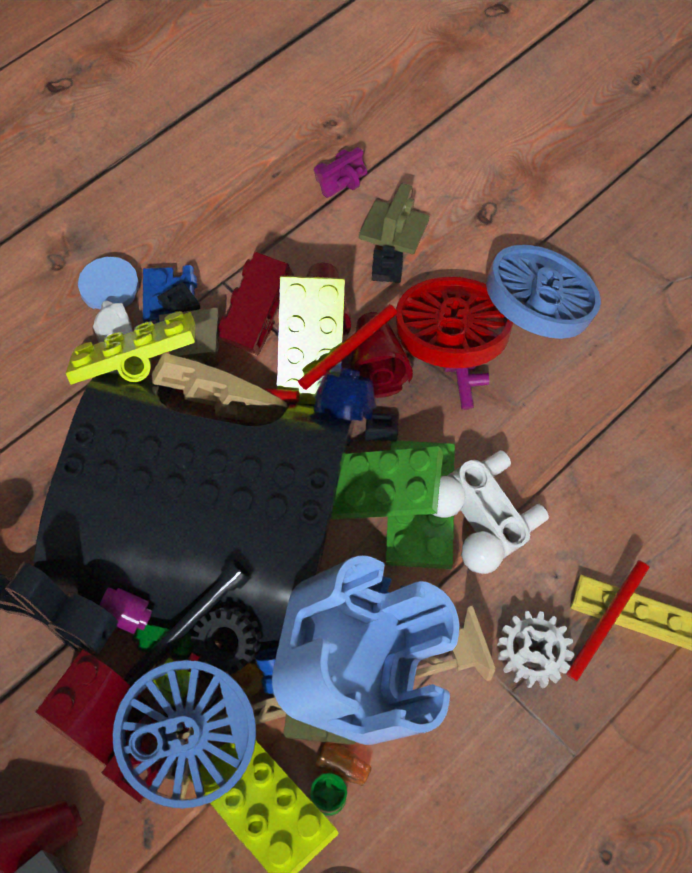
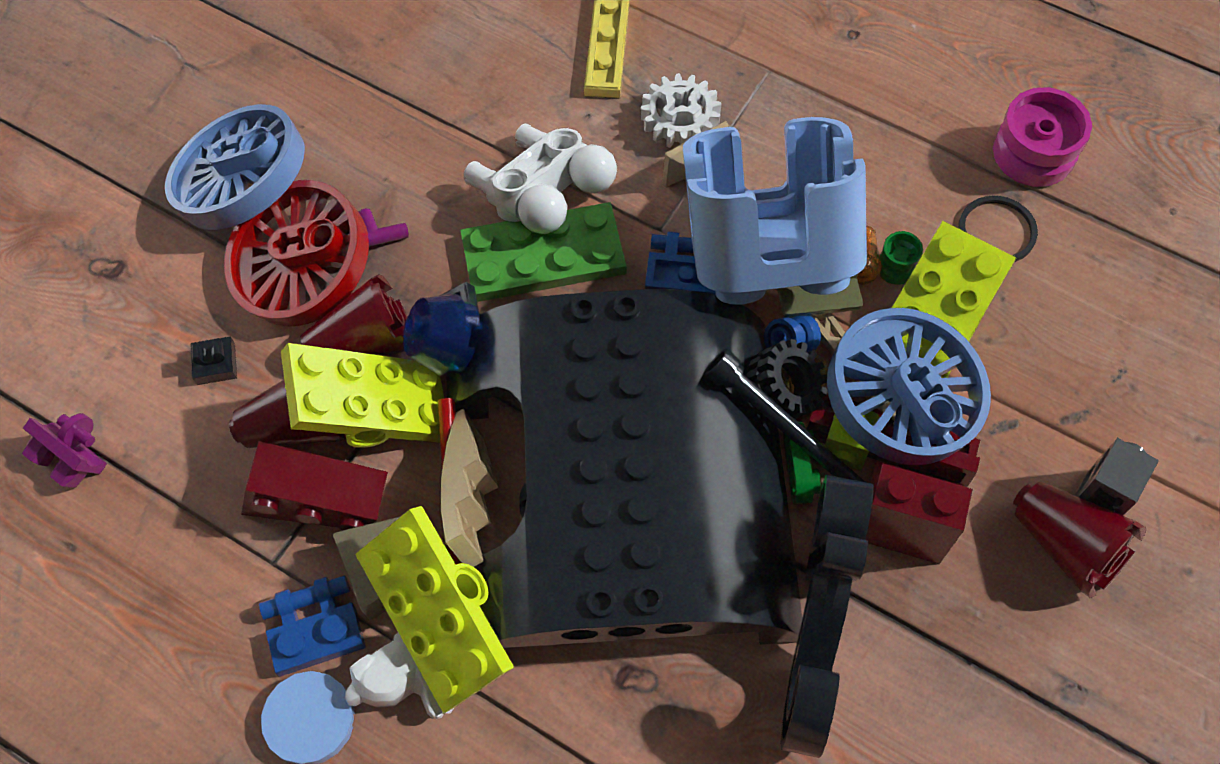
camera: 100 degrees left, 0 degrees up
(127, 609) = (794, 500): magenta brick -> none
(178, 299) = (326, 593): black tile -> none
(347, 347) = (371, 344): red bar -> none
(389, 483) = (539, 249): bright green plate -> none
(395, 223) = (147, 358): olive bracket -> none
(607, 620) = (623, 52): red bar -> none

